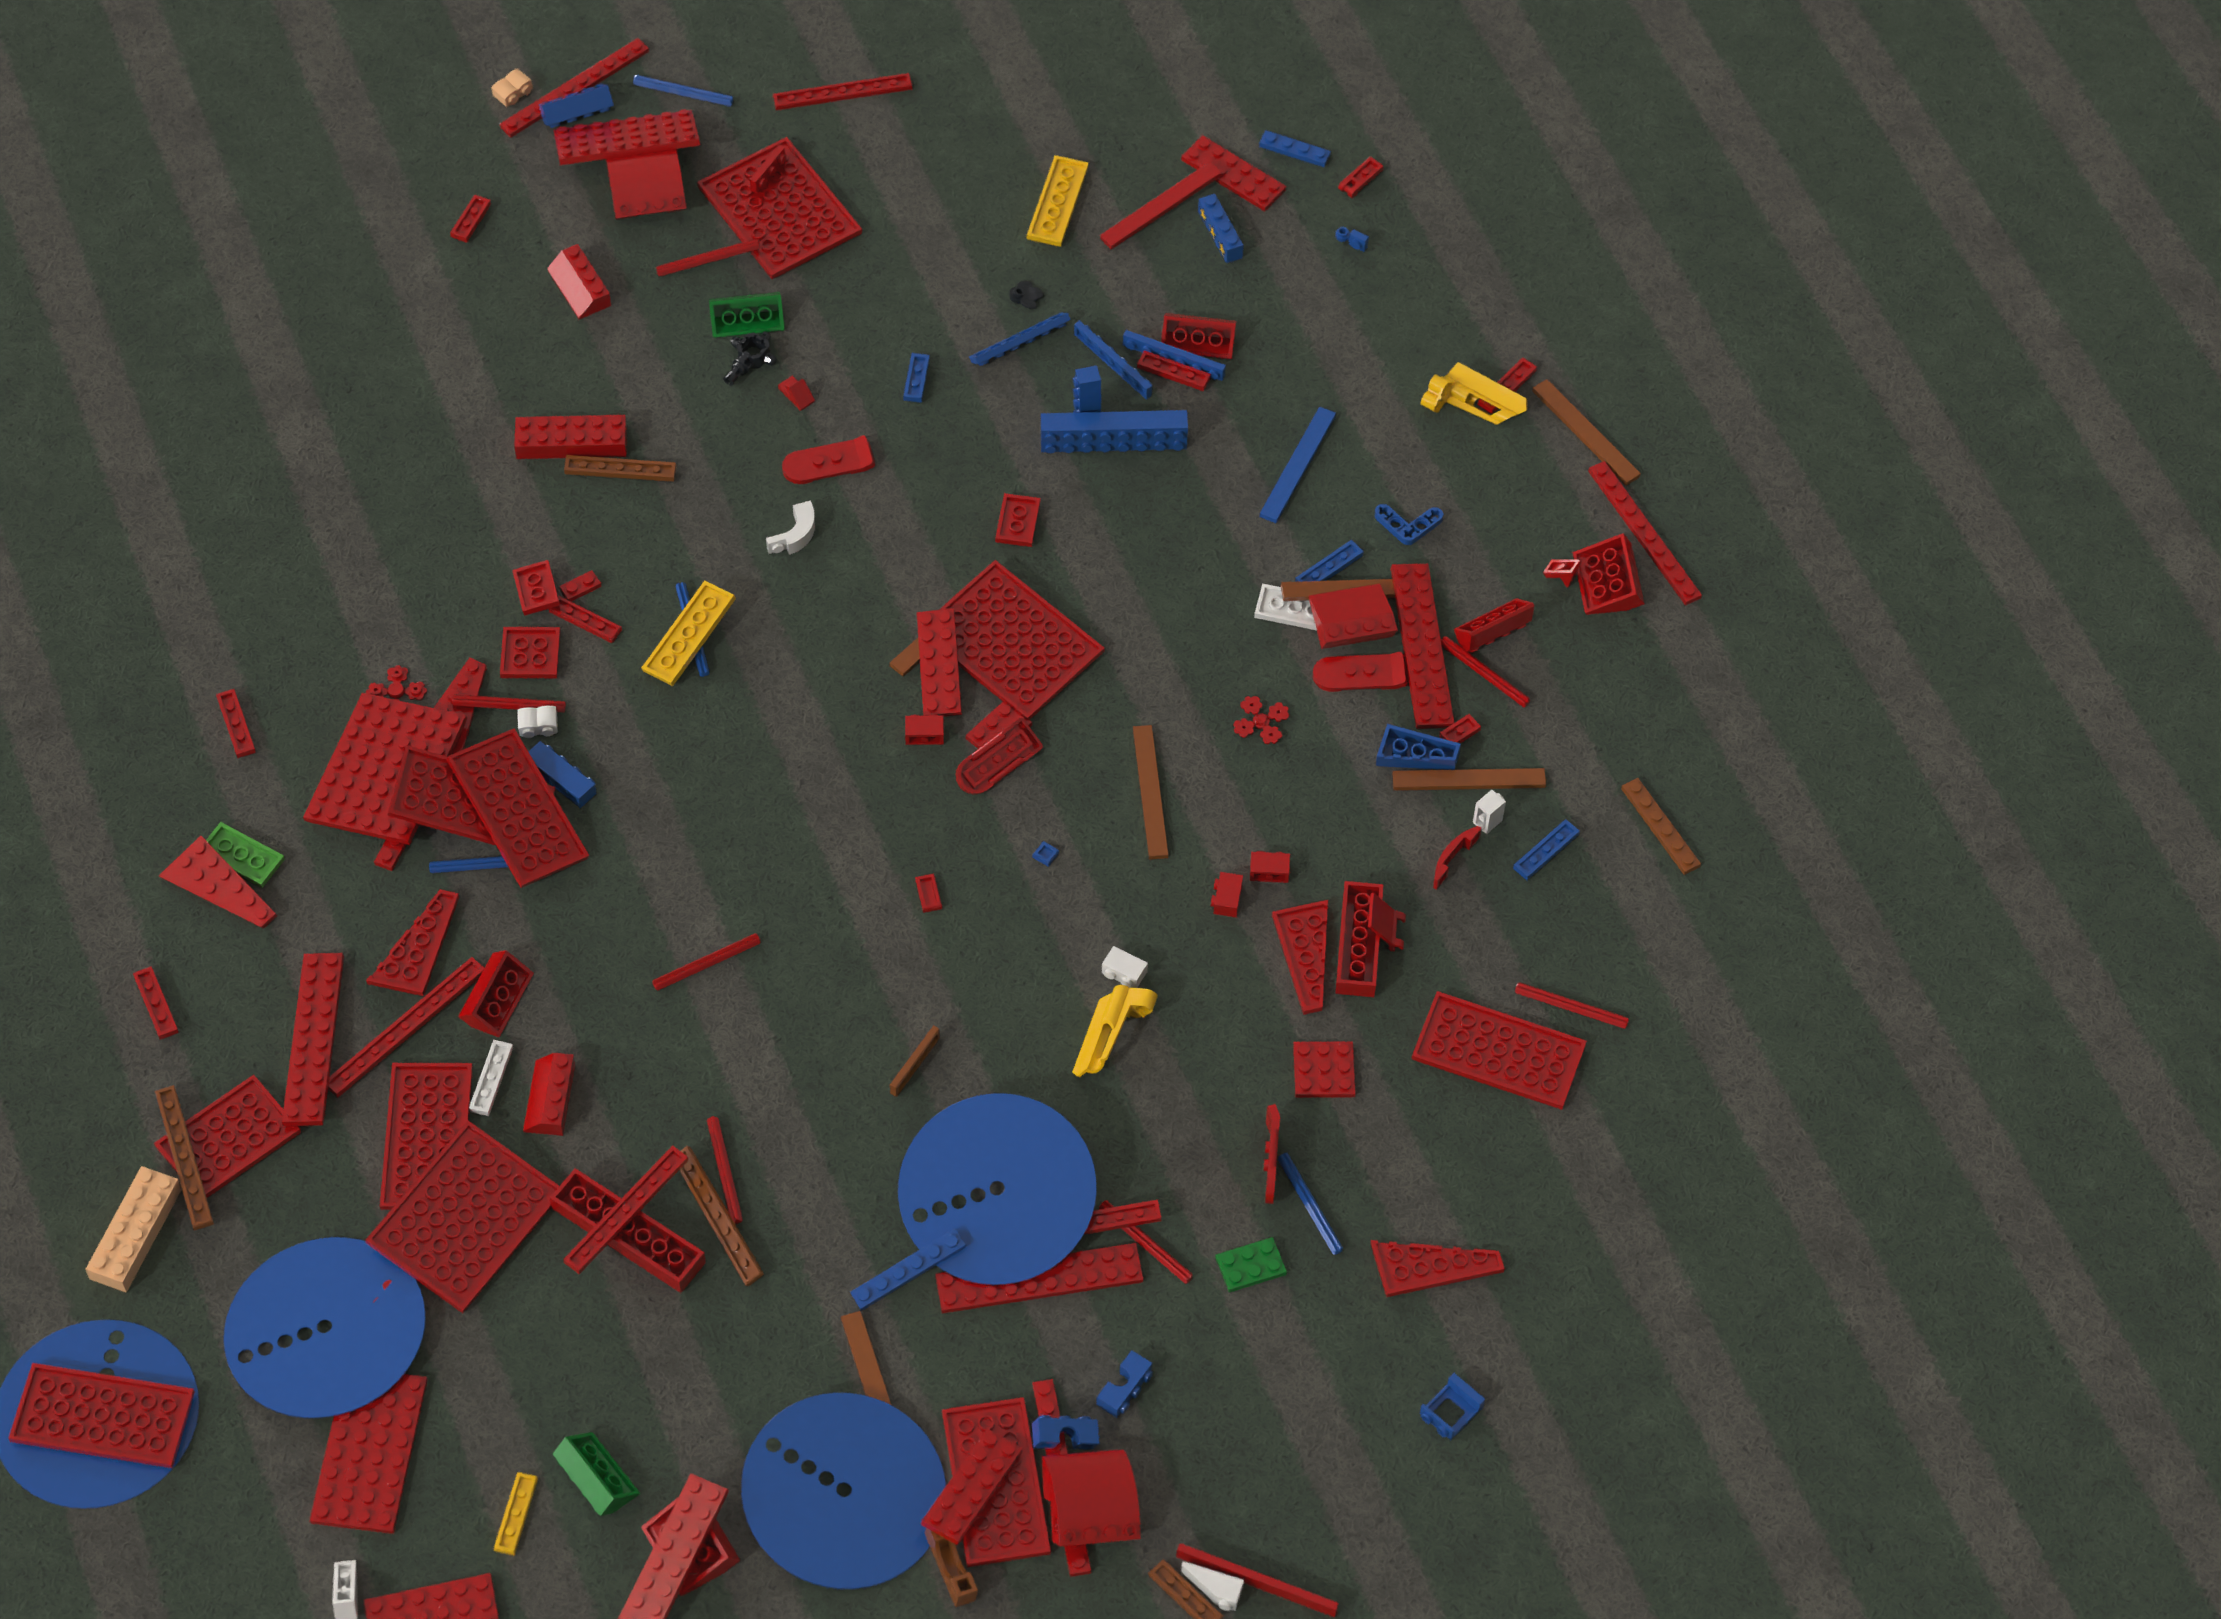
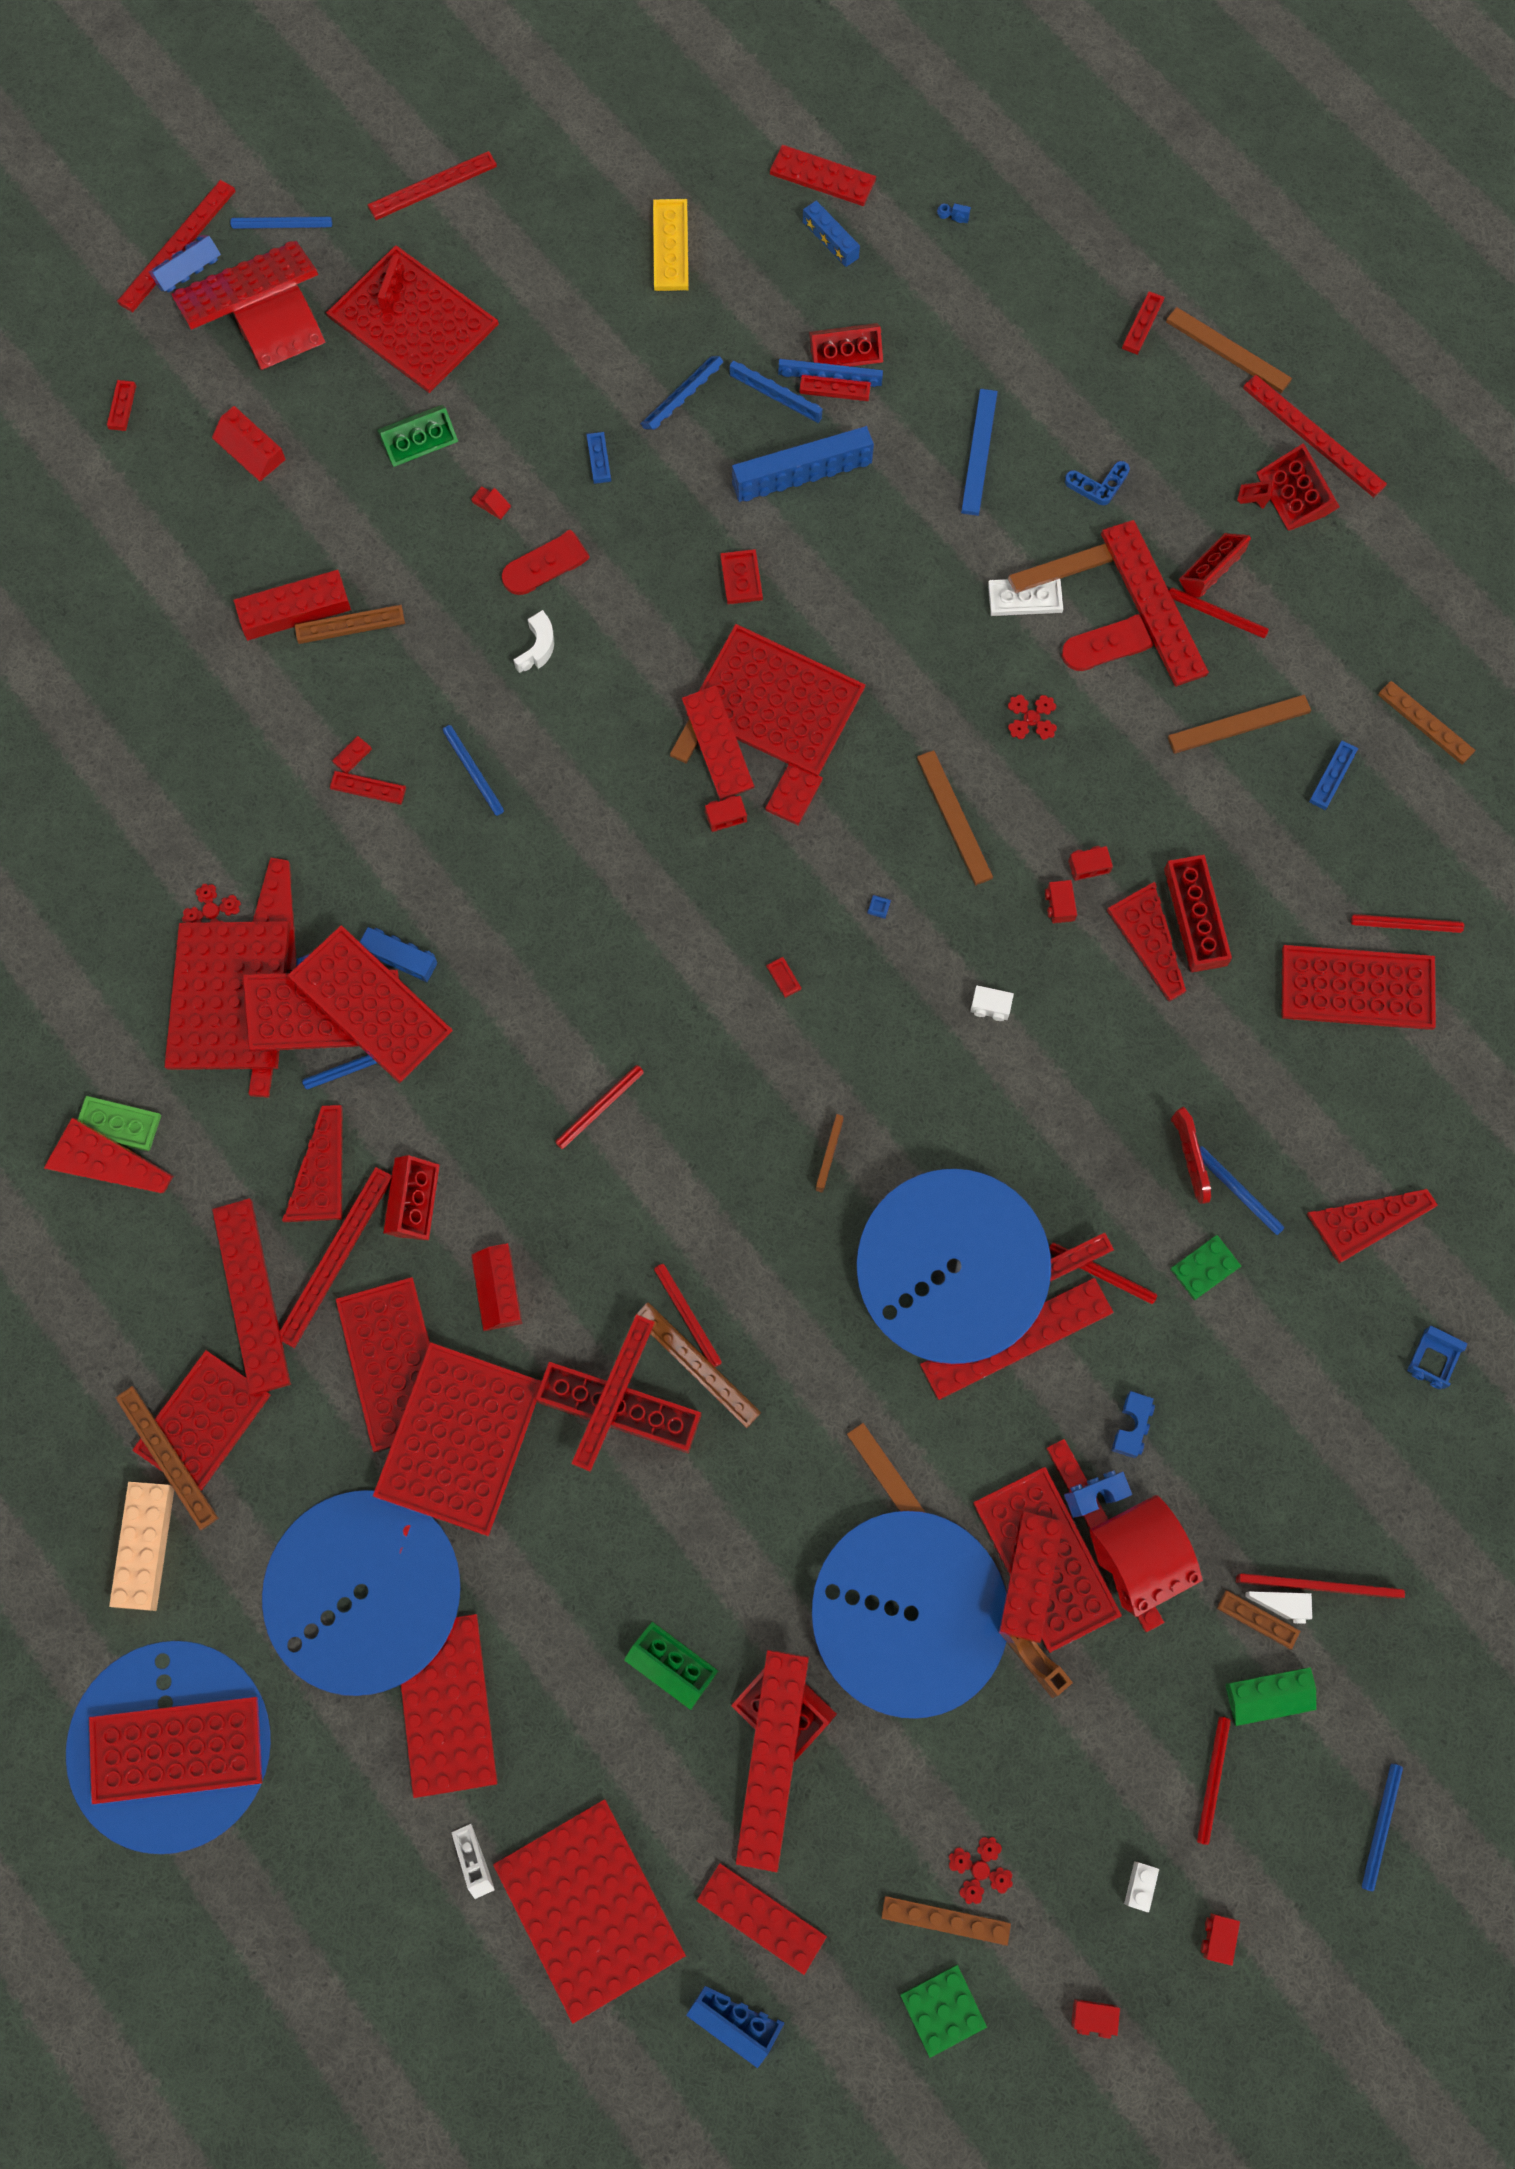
camera: 15 degrees left, 15 degrees up
(155, 1003) = (85, 1302): red plate -> none
(235, 723) = (67, 988): red plate -> none
(491, 1077) = (435, 1286): white plate -> none
(504, 703) = (323, 895): red axle -> none
(512, 87) = (117, 261): light nougat brick -> none
(516, 1513) = (608, 1728): yellow tile -> none
(530, 652) = (327, 836): red plate -> none
(536, 587) = (311, 769): red plate -> none
(537, 721) = (358, 906): white brick -> none
(688, 633) = (472, 777): yellow plate -> none
(708, 257) = (362, 386): red axle -> none
(744, 361) = (431, 483): black piece -> none
(908, 1269) = (895, 1369): blue plate -> none
(997, 758) = (804, 823): red piece -> none
(1025, 294) = (672, 346): black plate -> none
(1087, 390) = (769, 432): blue wedge -> none
(1109, 1015) = (995, 1052): yellow panel -> none
(1160, 205) = (767, 225): red tile -> none
(1294, 148) = (870, 136): blue plate -> none
(1324, 1069) = (1206, 1051): red plate -> none
(1332, 563) = (1044, 544): blue plate -> none
(1352, 616) = (1083, 590): red slope -> none
(1361, 177) = (941, 149): red plate -> none
(1384, 921) = (1217, 891): red flag -> none
(1416, 750) = (1183, 709): blue wedge -> none
(1461, 730) = (1216, 678): red plate -> none
(1464, 386) = (1106, 334): yellow panel -> none
(1465, 839) = (1247, 822): red slope -> none
(1489, 811) = (1273, 753): white brick -> none

